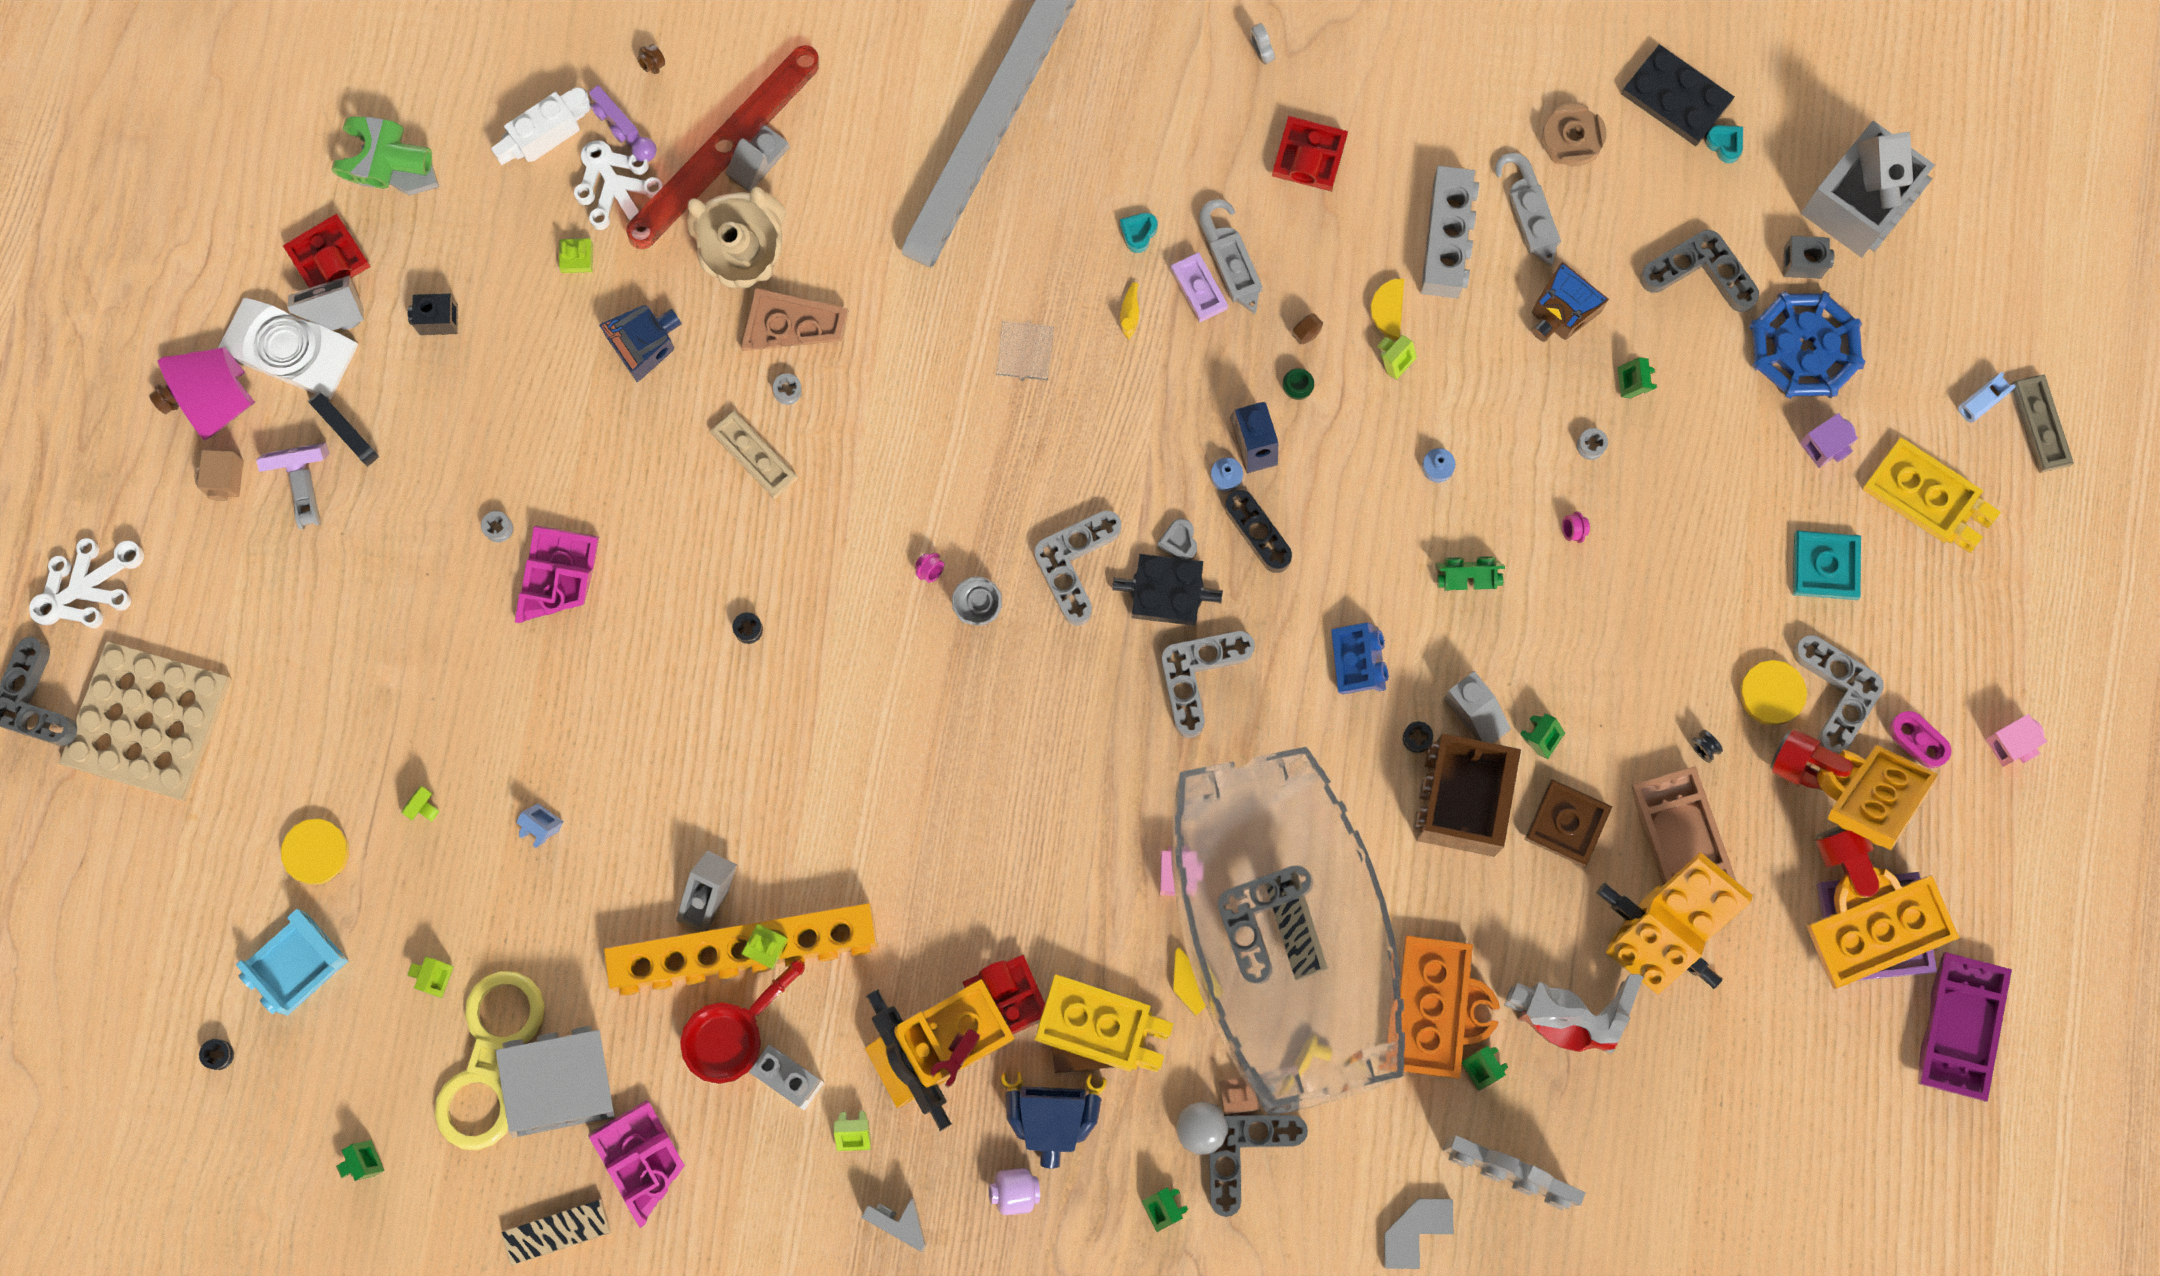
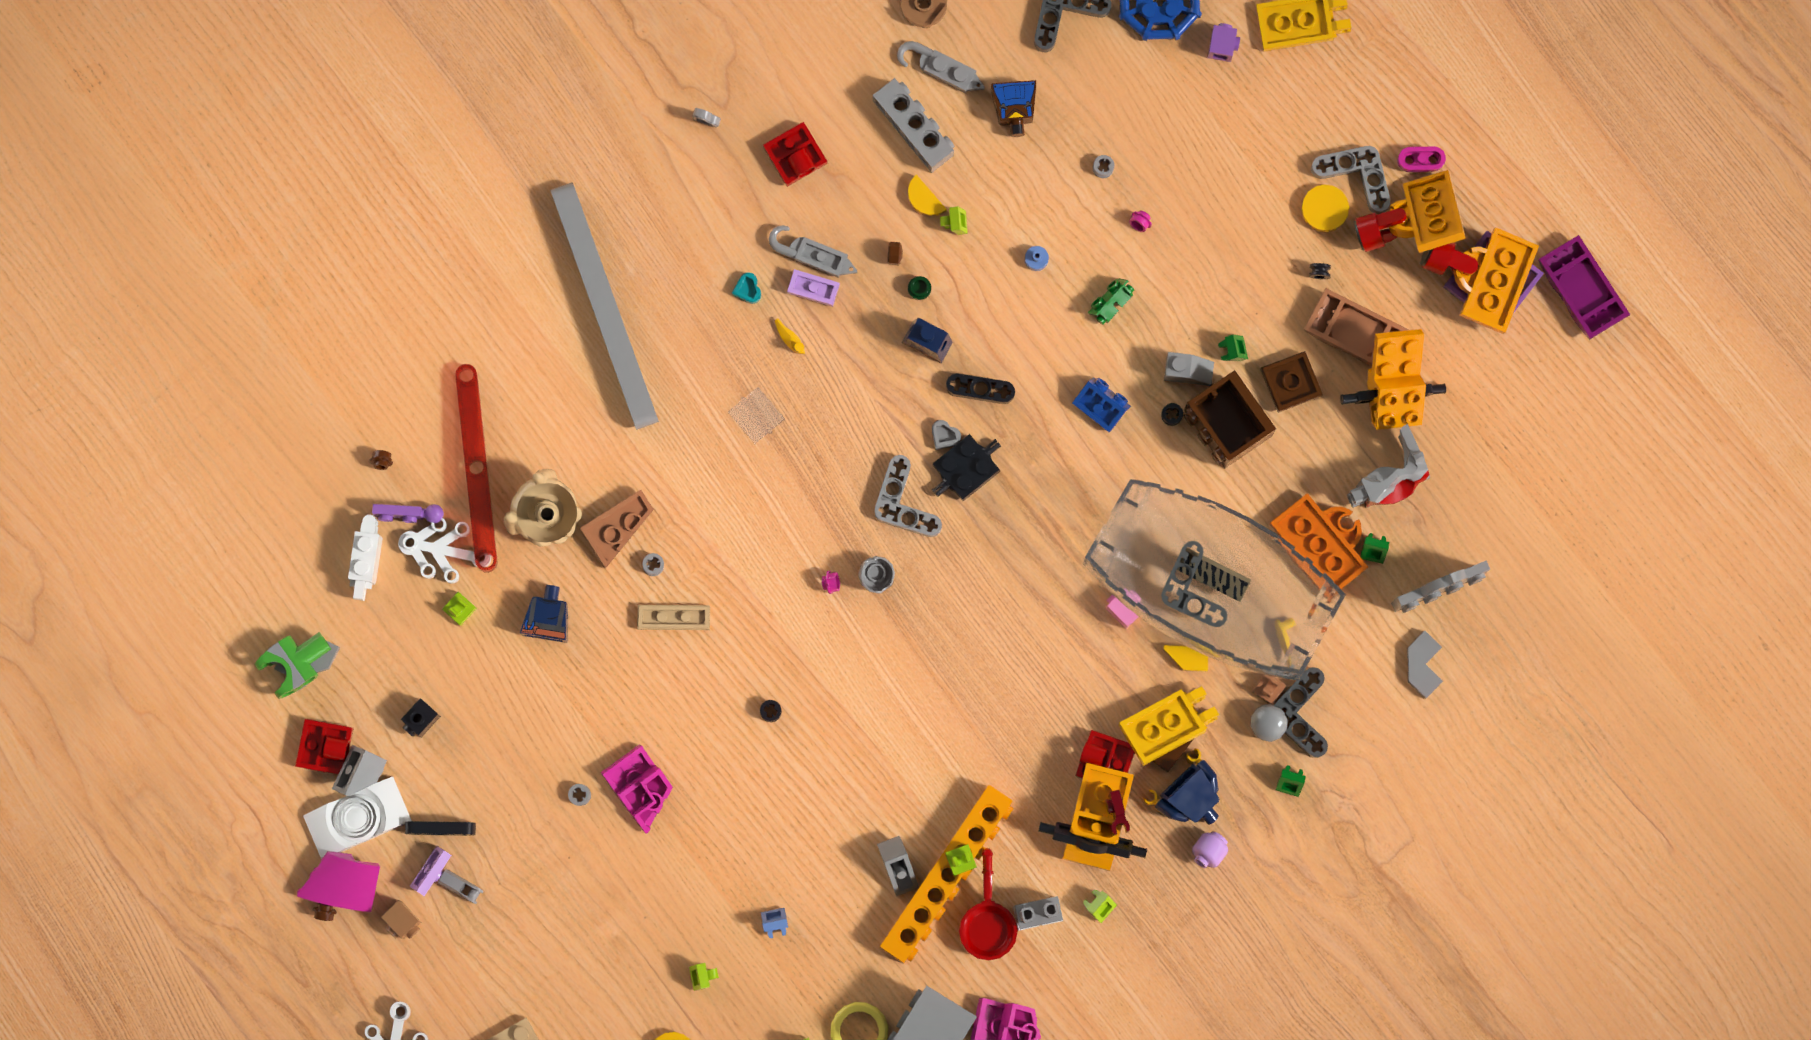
camera: 50 degrees left, 5 degrees up
(756, 158) = (498, 456): light grey slope -> none
(907, 1229) = (1176, 921): light grey slope -> none
(1193, 664) = (1019, 494): light grey beam -> none
(1226, 474) = (932, 380): medium blue tile -> none
(1635, 378) = (1090, 108): green tile -> none
(1827, 565) = (1286, 111): teal tile -> none
(2017, 741) = (1469, 111): bright pink brick -> none

